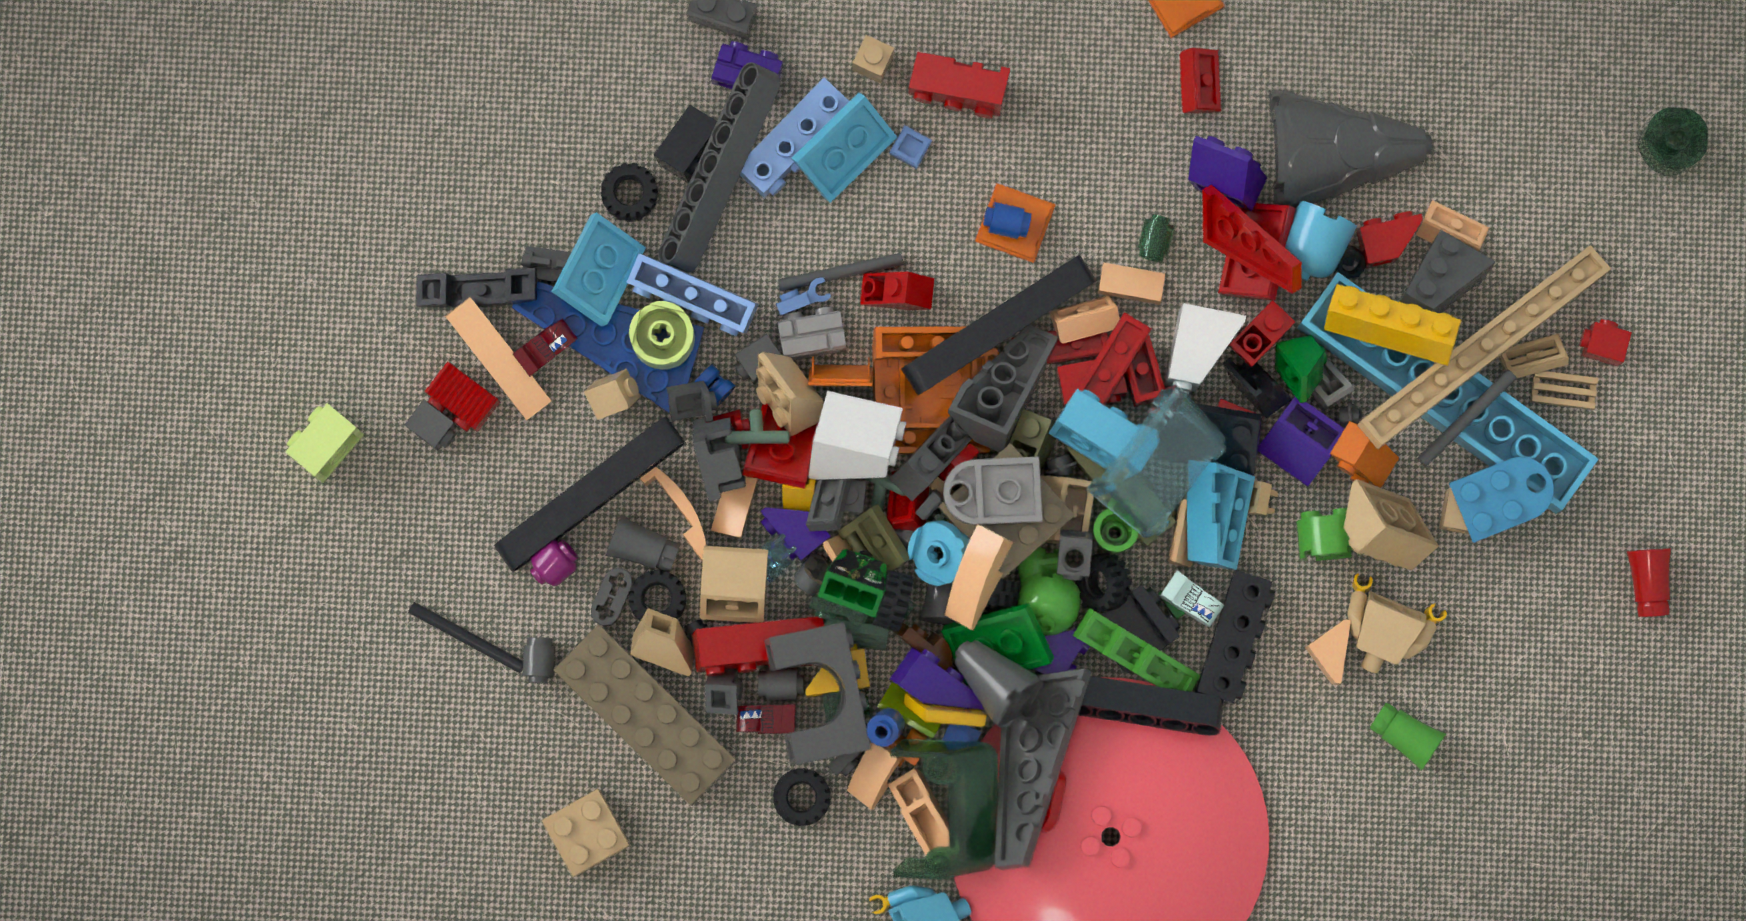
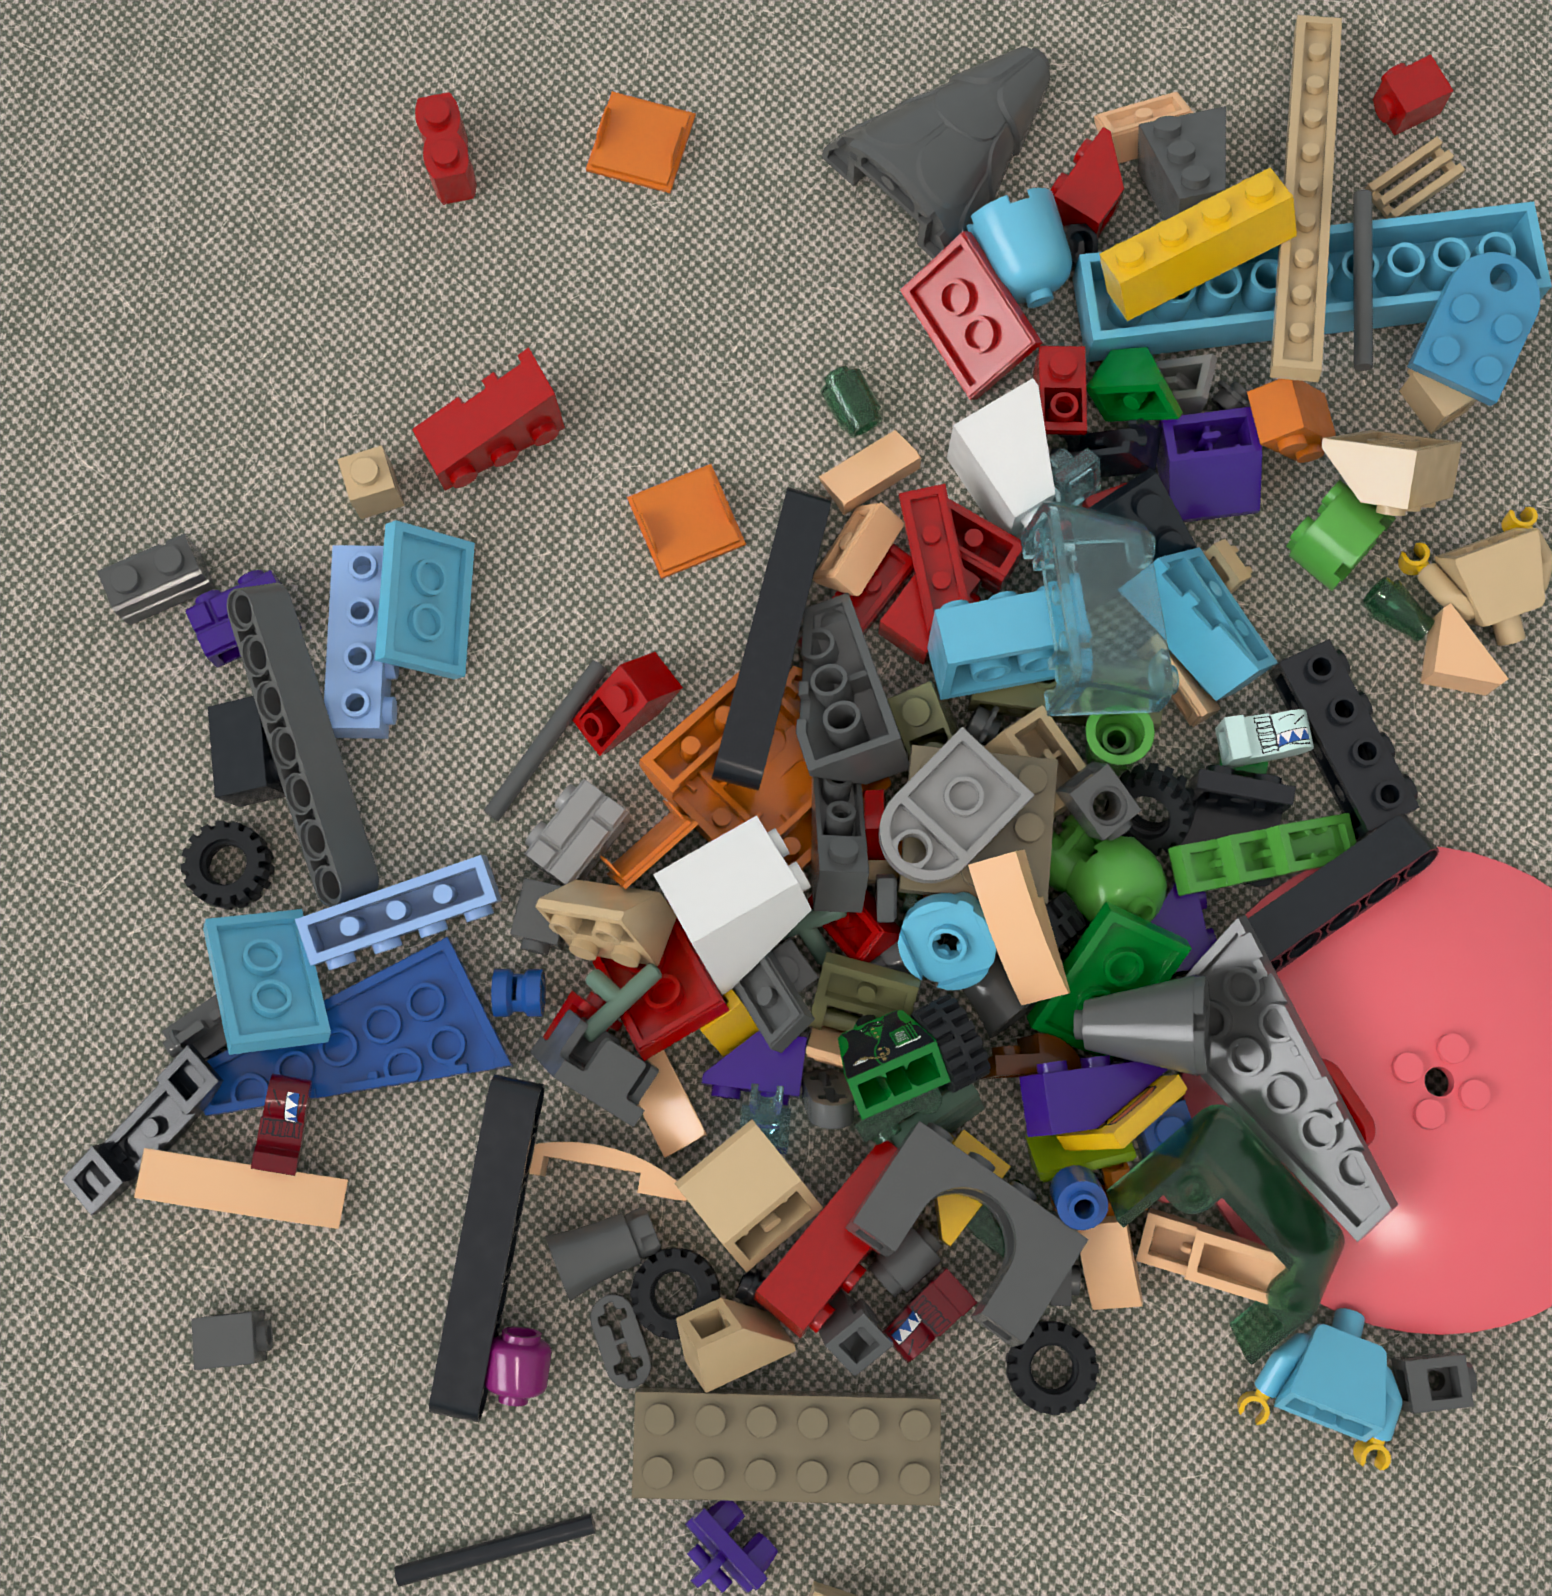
camera: 40 degrees left, 5 degrees down
(323, 442) = (114, 1483): yellowish green brick -> none
(461, 397) = (238, 1272): red brick -> none
(538, 660) = (603, 1498): dark grey brick -> none
(568, 736) = (743, 1564): none -> dark purple hips
(612, 394) = (410, 1107): tan brick -> none
(652, 320) = (380, 977): yellowish green brick -> none
(691, 401) = (508, 1031): dark grey bracket -> none
(792, 300) = (523, 816): medium blue plate -> none
(910, 147) = (498, 541): medium blue tile -> none
(1007, 220) = (676, 520): blue brick -> none
(1200, 81) = (741, 207): red slope -> none
(1221, 383) = (1075, 477): none -> clear light blue tile
(1226, 169) = (861, 260): dark purple slope -> none
(1244, 241) = (958, 305): red wing -> none
(1326, 598) = (1395, 607): none -> clear green cone
(1535, 360) = (1362, 172): tan tile -> none

